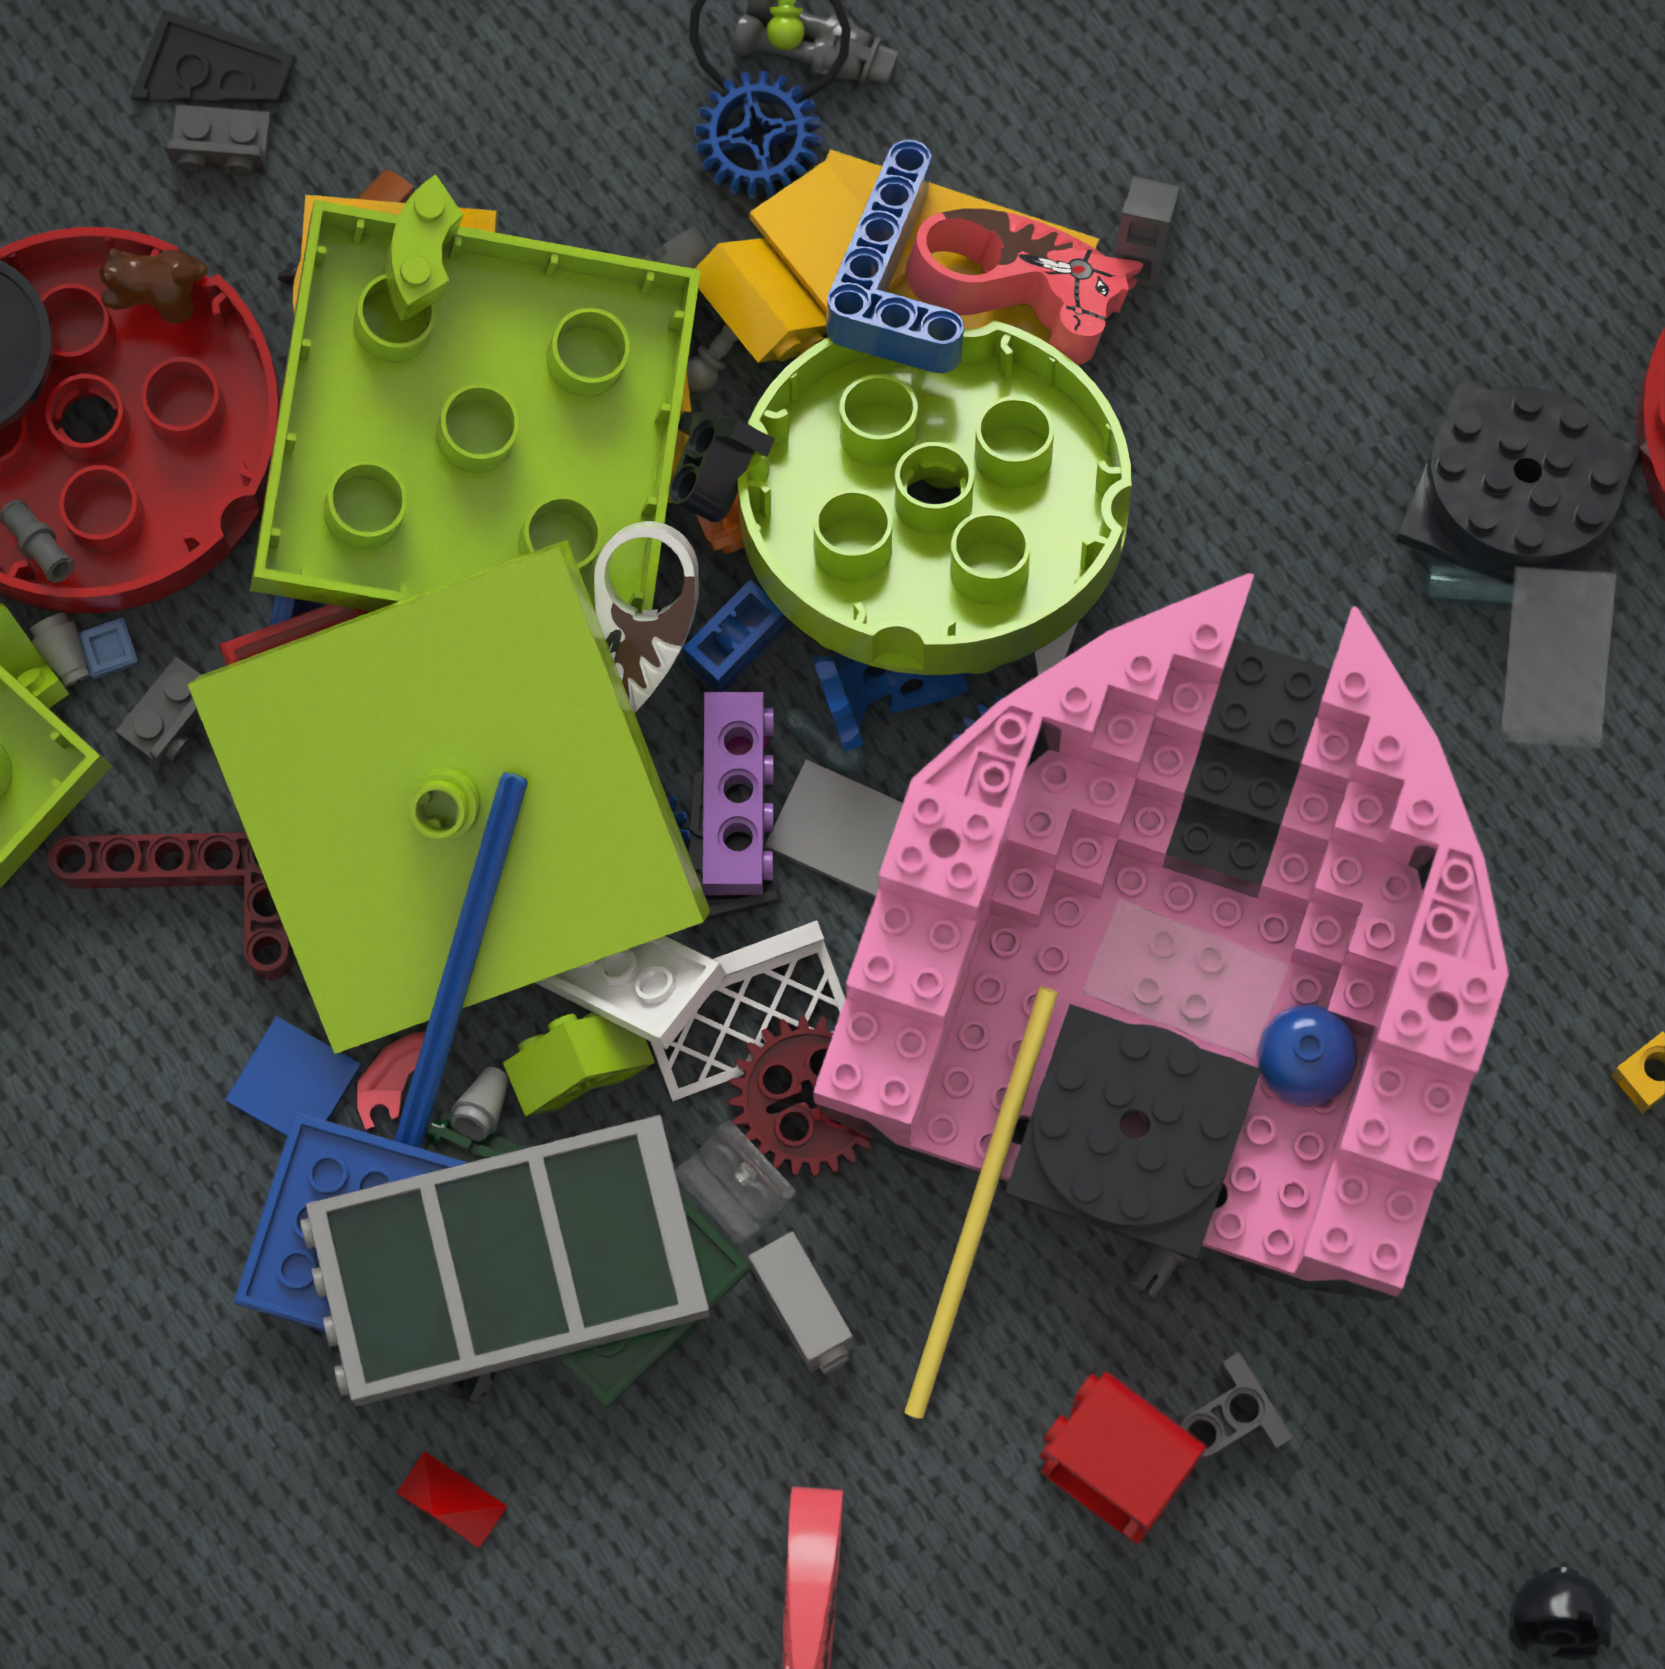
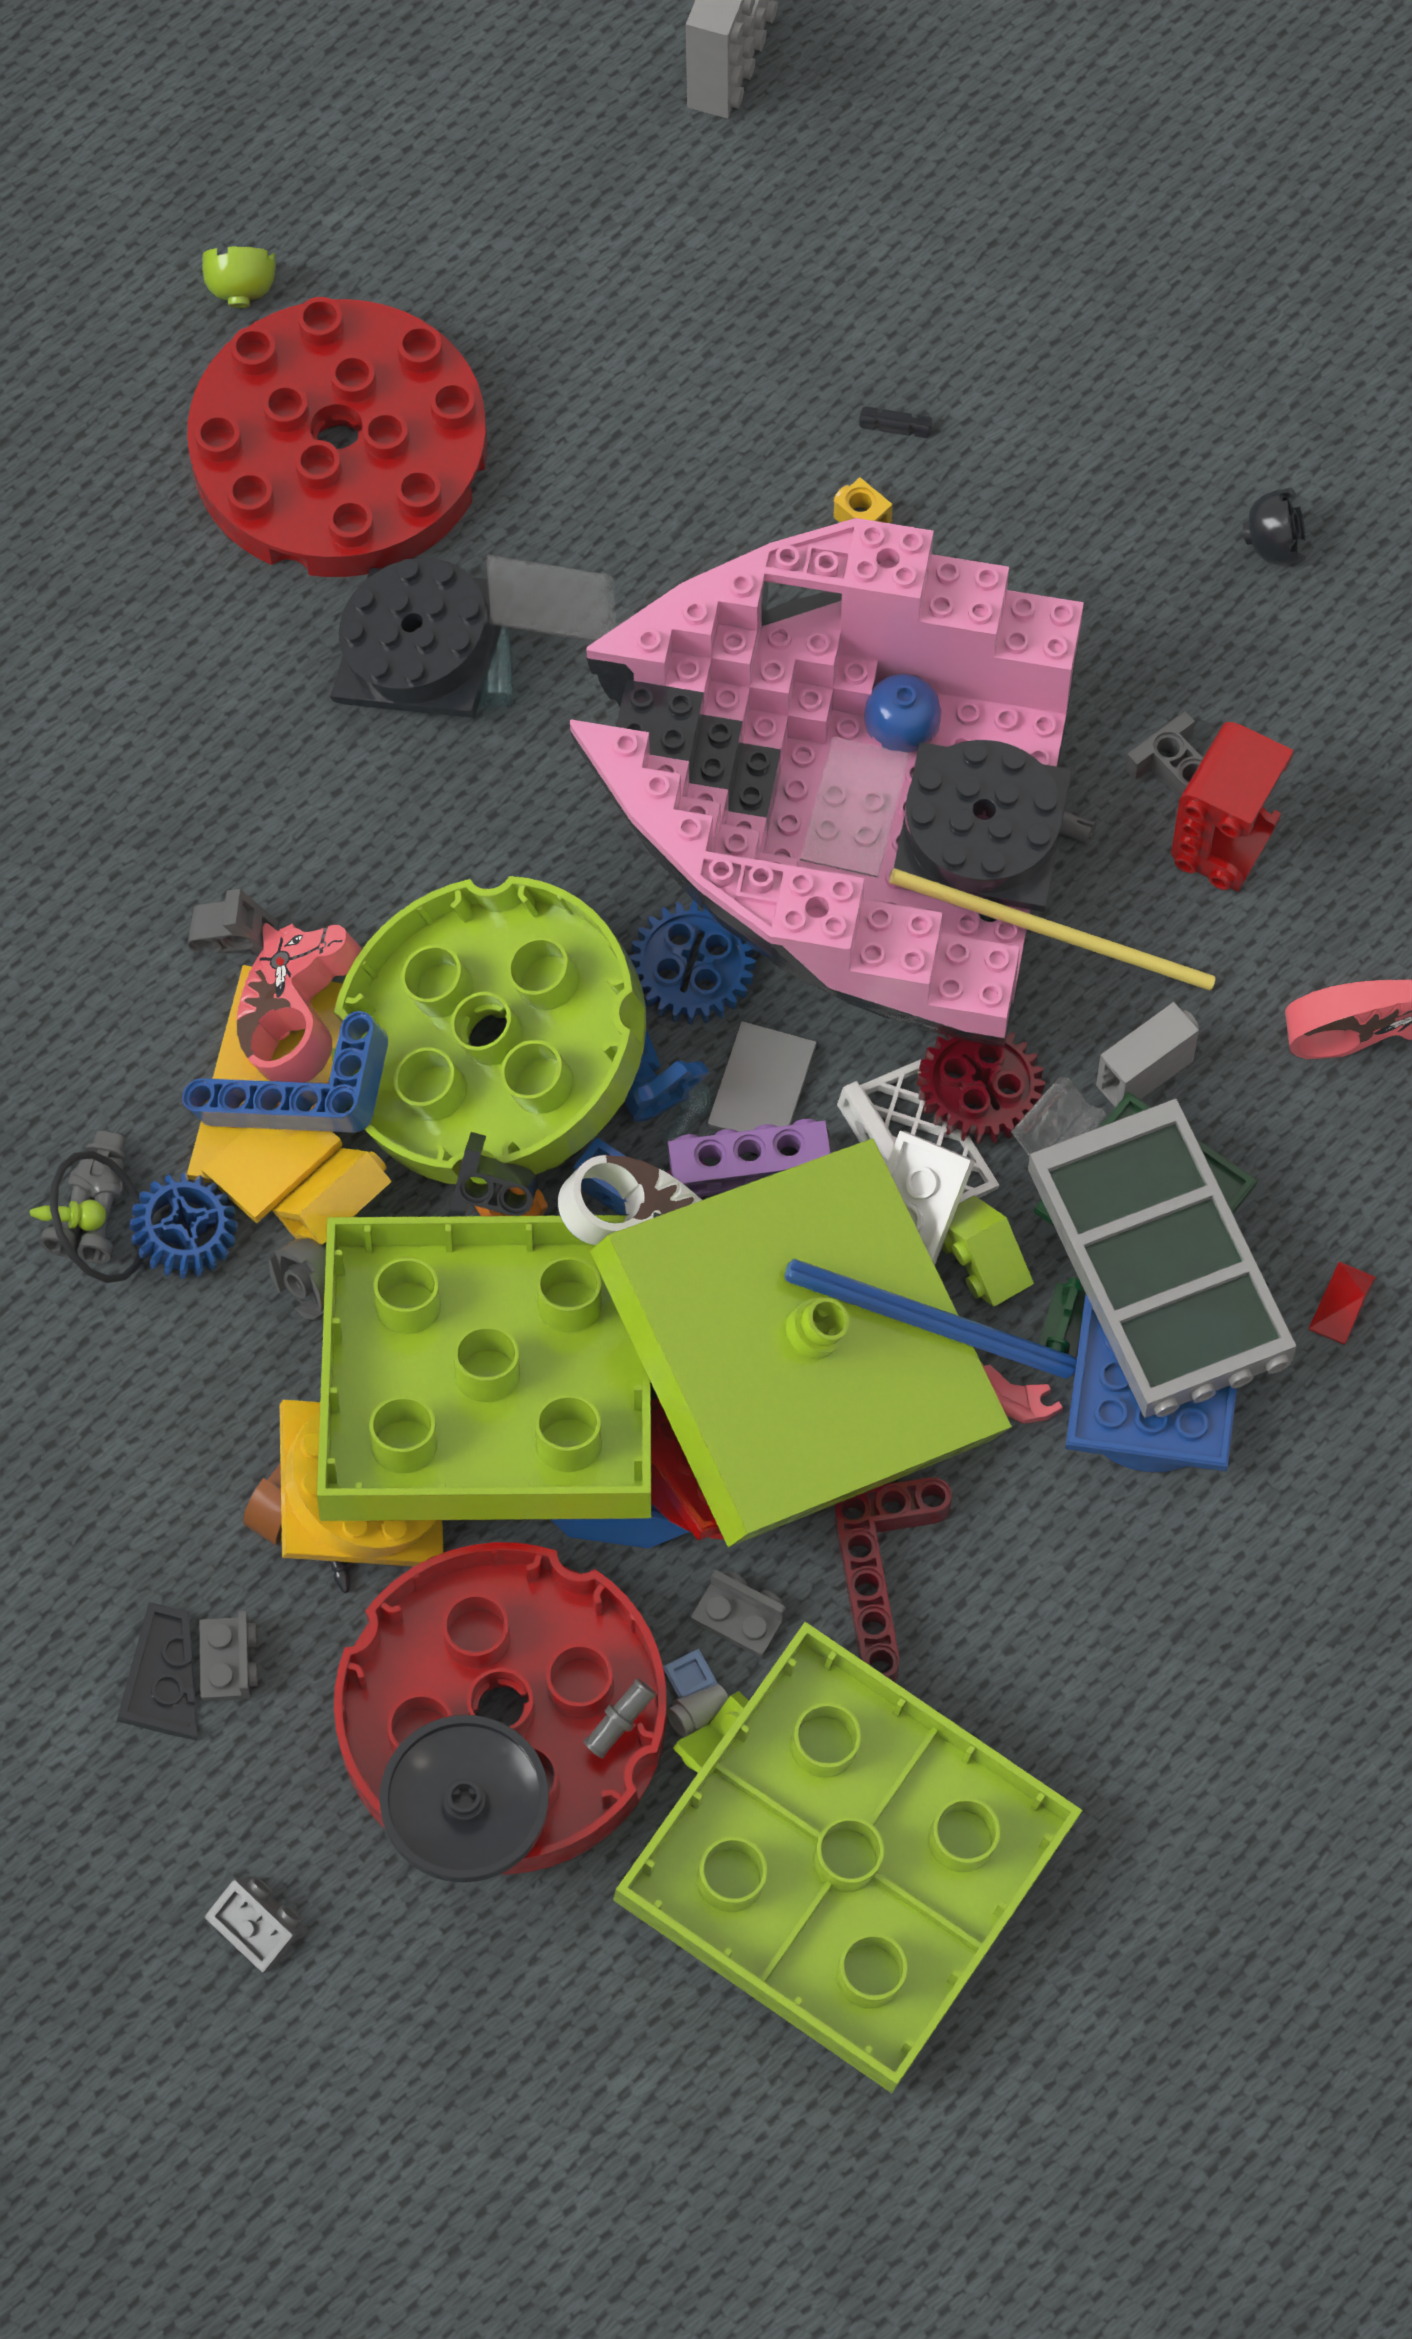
camera: 100 degrees left, 10 degrees down
(155, 281) = (383, 1641): reddish brown animal -> none
(290, 1076) = (1032, 1471): blue tile -> none
(415, 251) = (352, 1404): lime brick -> none
(481, 1105) = (1029, 1319): light grey cone -> none

